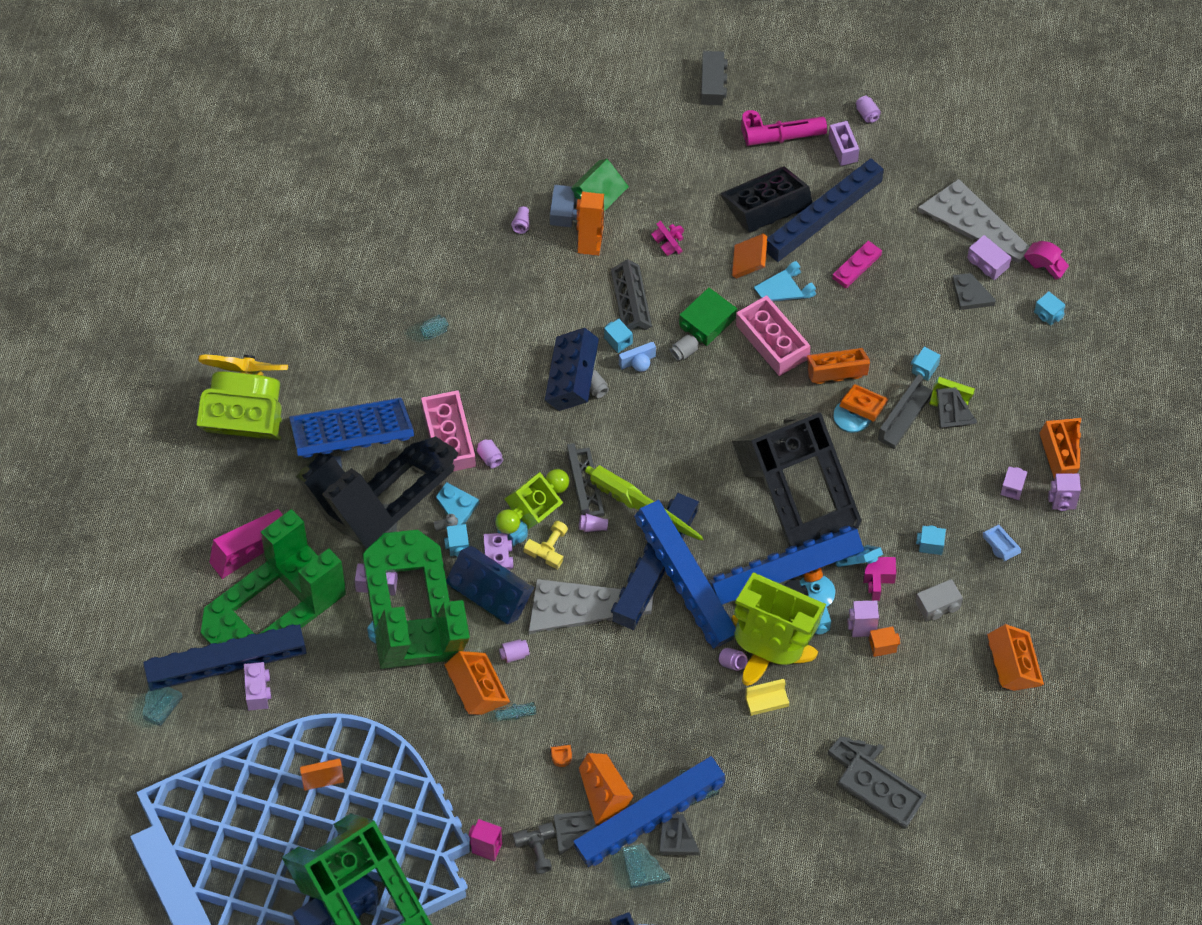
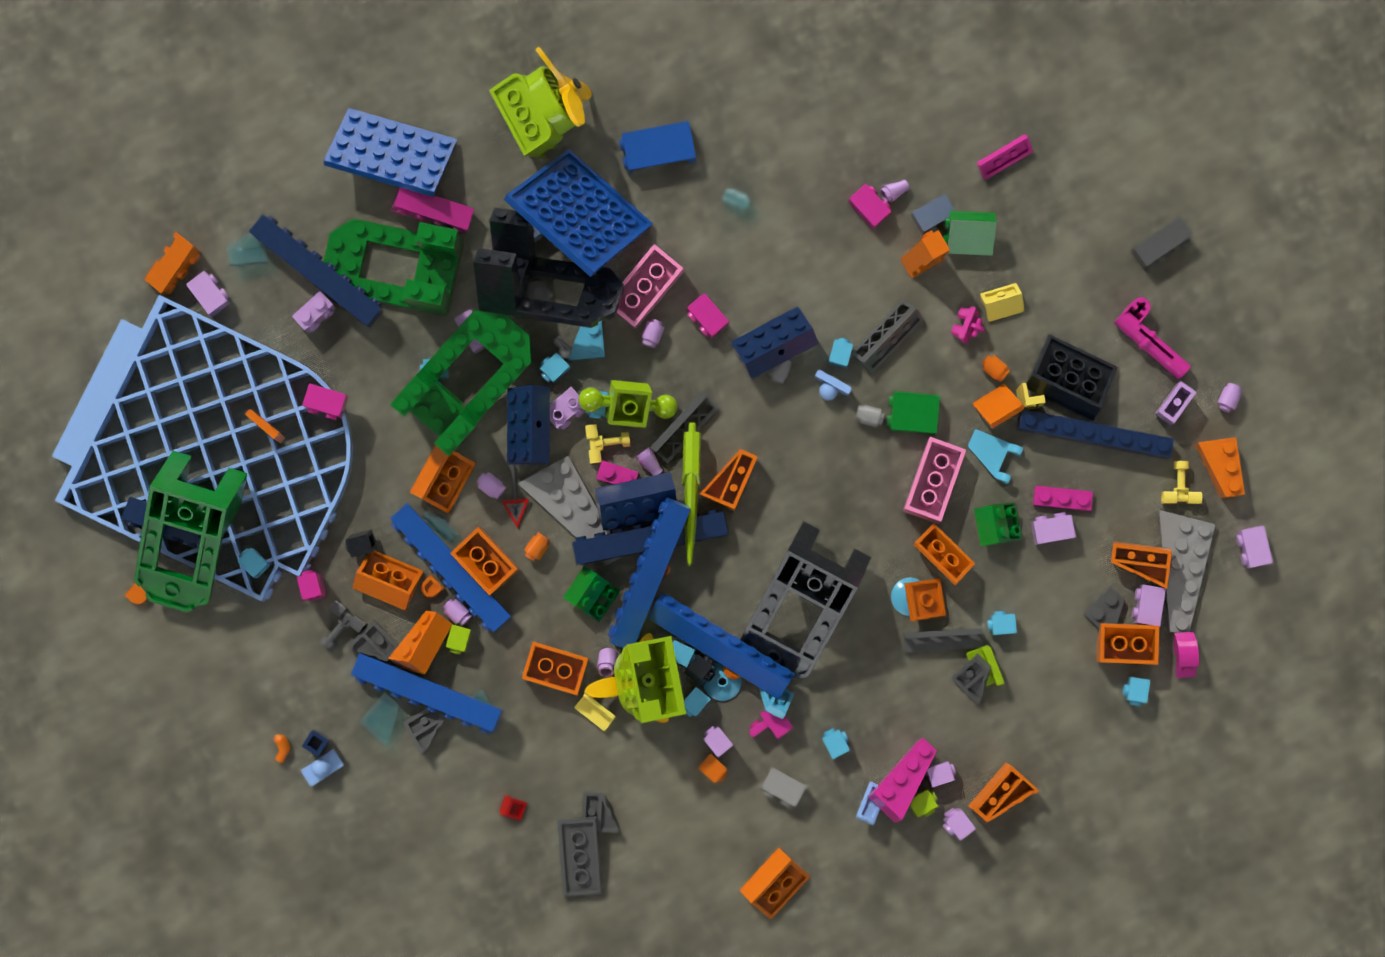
camera: 55 degrees right, 25 degrees up
(120, 766) = (172, 265): none -> orange wedge
(168, 757) = (208, 293): none -> lavender brick
(178, 536) = (390, 152): none -> plate
(340, 719) = (325, 401): none -> dark pink brick
(344, 352) = (657, 146): none -> blue panel
(428, 867) = (253, 562): none -> medium azure brick
(480, 779) = (361, 543): none -> black brick
(509, 405) = (707, 315): none -> dark pink brick
(519, 243) = (870, 206): none -> dark pink brick
(528, 782) = (387, 579): none -> orange slope
(546, 648) = (515, 507): none -> piece
(558, 726) = (438, 554): none -> blue brick
(559, 133) = (1004, 157): none -> dark pink plate
(574, 690) = (485, 560): none -> orange slope
(585, 552) = (615, 474): none -> dark pink brick
(593, 650) = (536, 547): none -> orange brick
(599, 745) = (457, 612): none -> lavender brick
(616, 547) = (633, 500): none -> dark blue brick
(623, 759) = (458, 639): none -> lime brick
(657, 471) = (731, 480): none -> orange wedge
(665, 635) = (591, 593): none -> green slope
(670, 205) = (1002, 302): none -> light yellow panel
(707, 700) = (555, 668): none -> orange brick
(717, 241) = (995, 367): none -> orange brick
(755, 228) = (1029, 403): none -> light yellow panel
(799, 817) = (512, 808): none -> red slope
(842, 316) = (997, 524): none -> green slope
(877, 283) = (1053, 529): none -> lavender brick
(915, 185) = (1181, 493): none -> light yellow bar
(917, 144) = (1223, 465): none -> orange wedge
(950, 237) = (1143, 560): none -> orange wedge
(997, 164) = (1254, 547): none -> lavender brick
(1000, 506) = (901, 783): none -> dark pink wedge
(1008, 288) = (1128, 644): none -> orange slope
(1029, 510) = (924, 803): none -> lime brick

